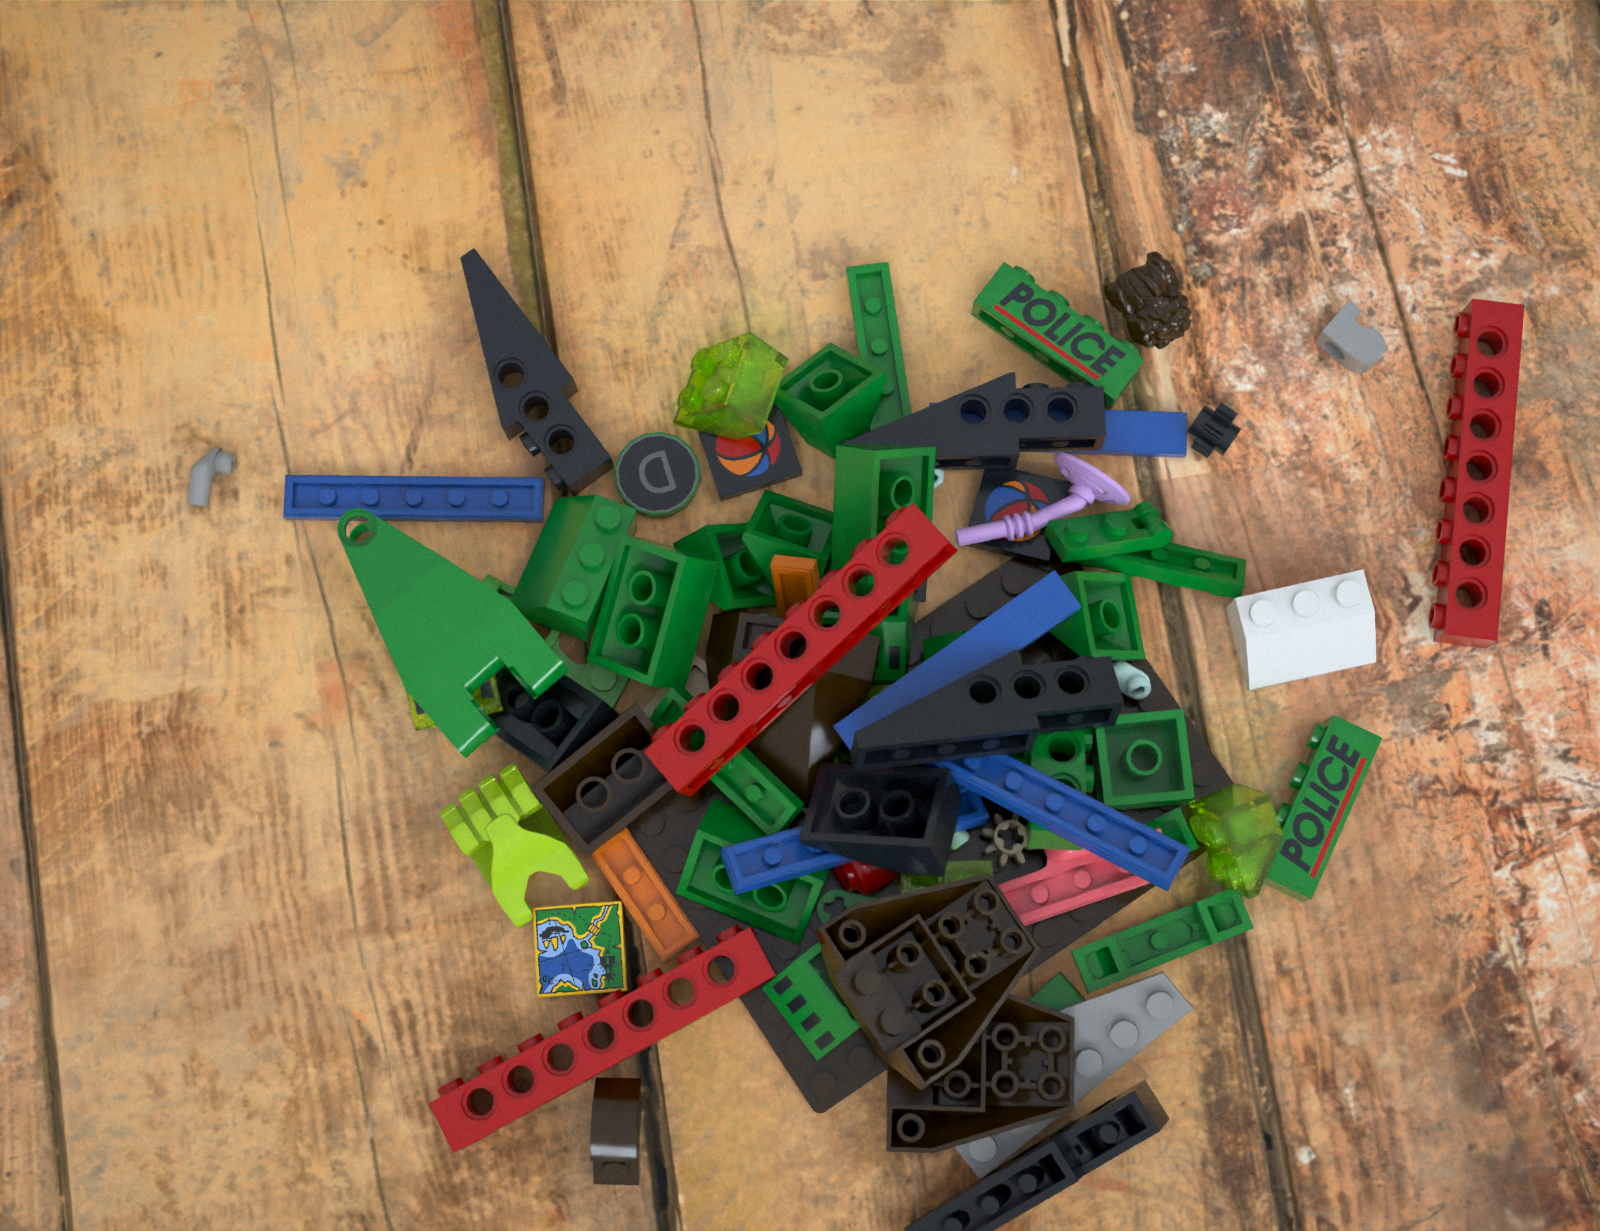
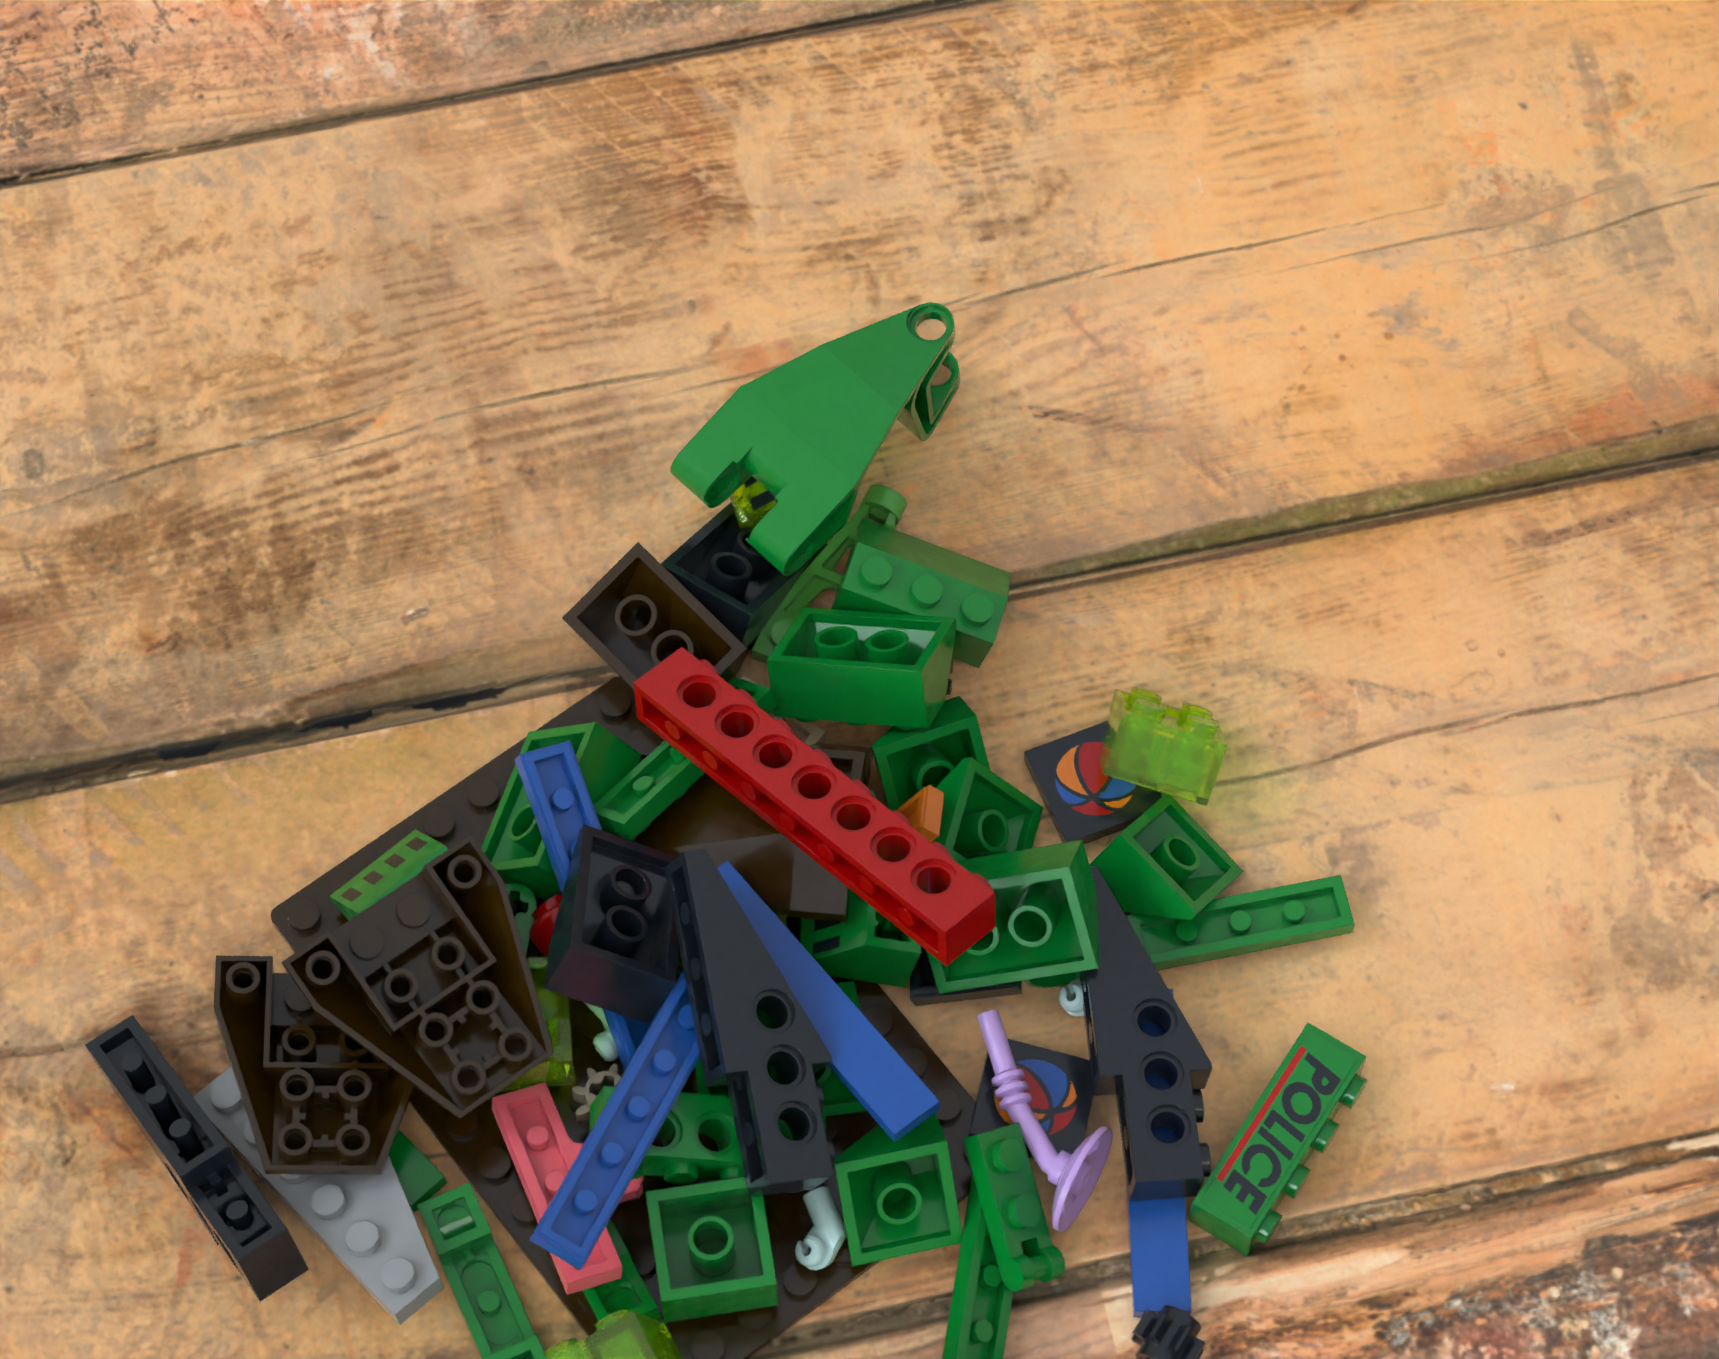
camera: 85 degrees right, 15 degrees down
(204, 471) = (1009, 198): light grey arm -> none
(416, 498) = (996, 423): blue tile -> none
(466, 1125) = (439, 812): red brick -> none
(511, 839) = (577, 544): lime piece -> none
(515, 346) = (1197, 504): black brick -> none
(580, 949) = (460, 639): tile -> none
(616, 1131) = (248, 680): dark brown brick -> none
(645, 895) = (528, 703): orange tile -> none
(657, 474) = (1049, 681): black tile -> none
(1150, 302) = (1335, 1248): dark brown hair -> none

